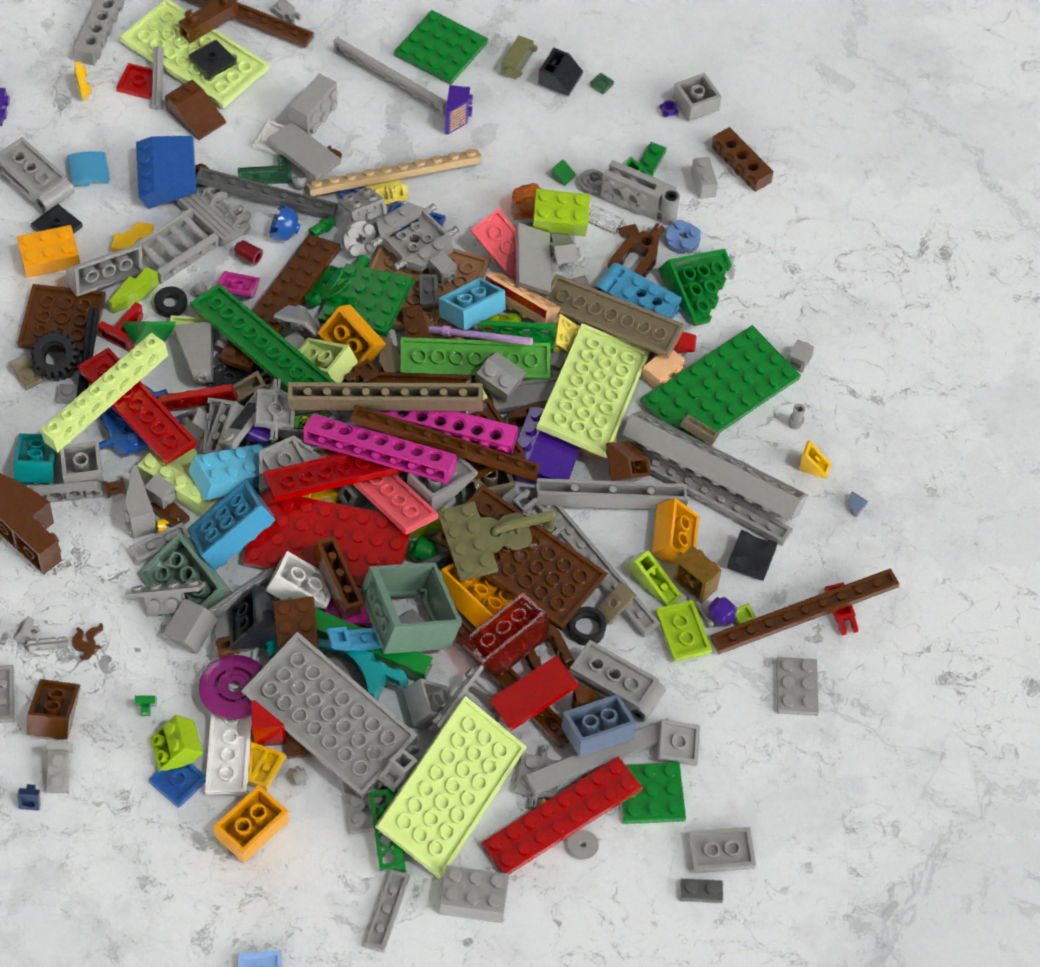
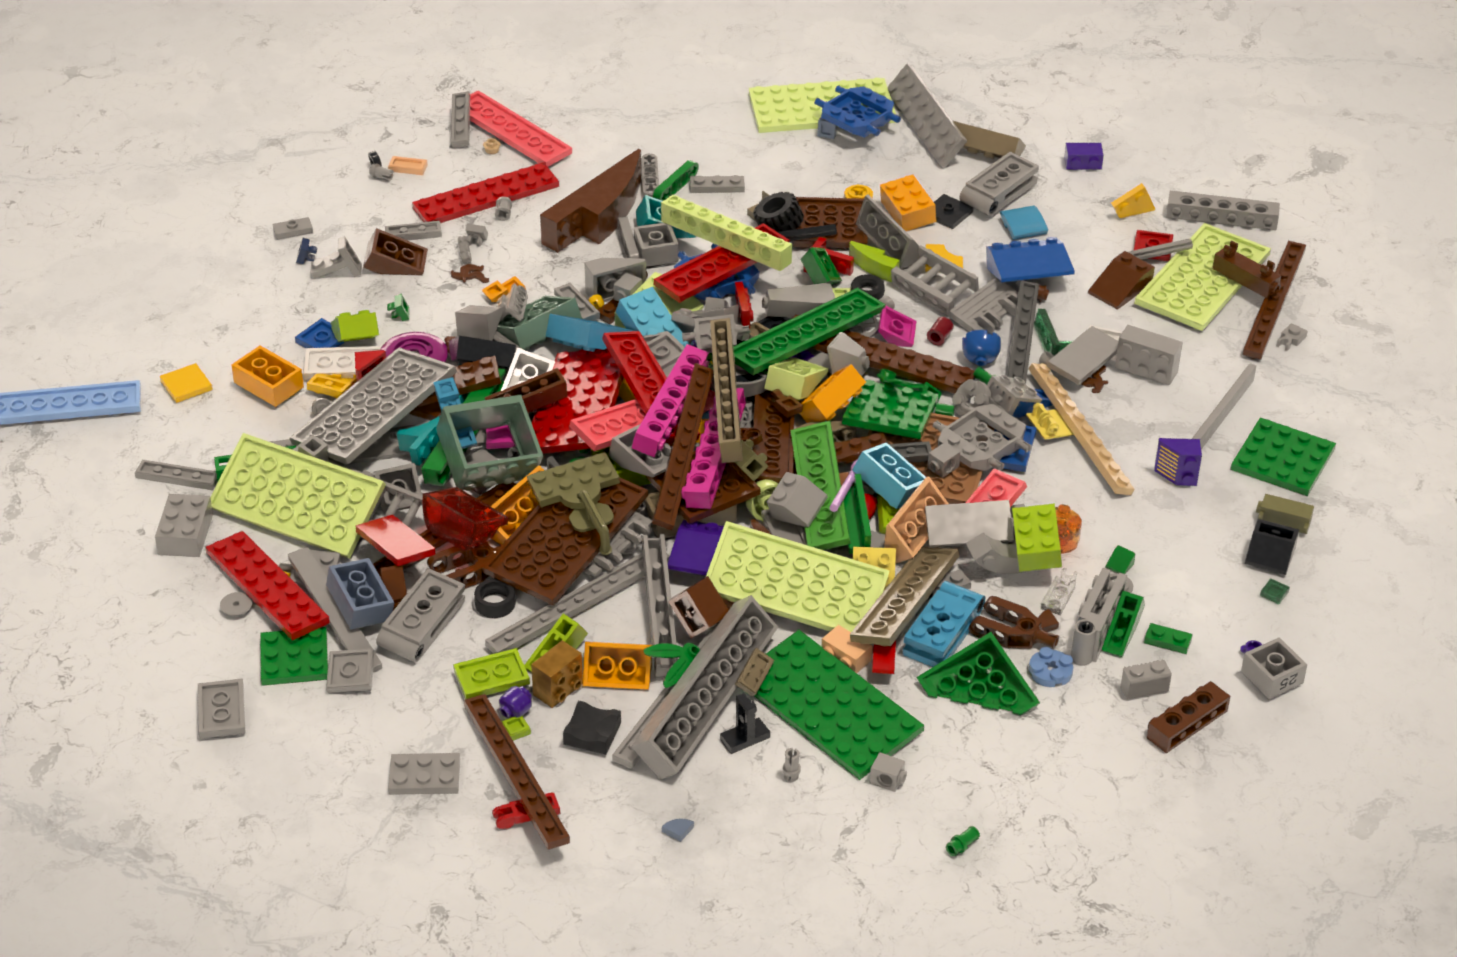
camera: 90 degrees right, 15 degrees down
(19, 286) = (858, 191): none -> yellow gear
(124, 608) = (496, 289): none -> light orange slope
(212, 59) = (1192, 283): black plate -> none
(238, 910) = (186, 382): none -> yellow tile
(616, 602) = (520, 614): dark tan plate -> none
(684, 480) = (665, 650): none -> green plant
(701, 890) = (177, 696): dark grey plate -> none
(754, 445) = (747, 729): none -> black bracket
(814, 461) = (731, 782): yellow slope -> none
(870, 319) = (960, 842): none -> green pin

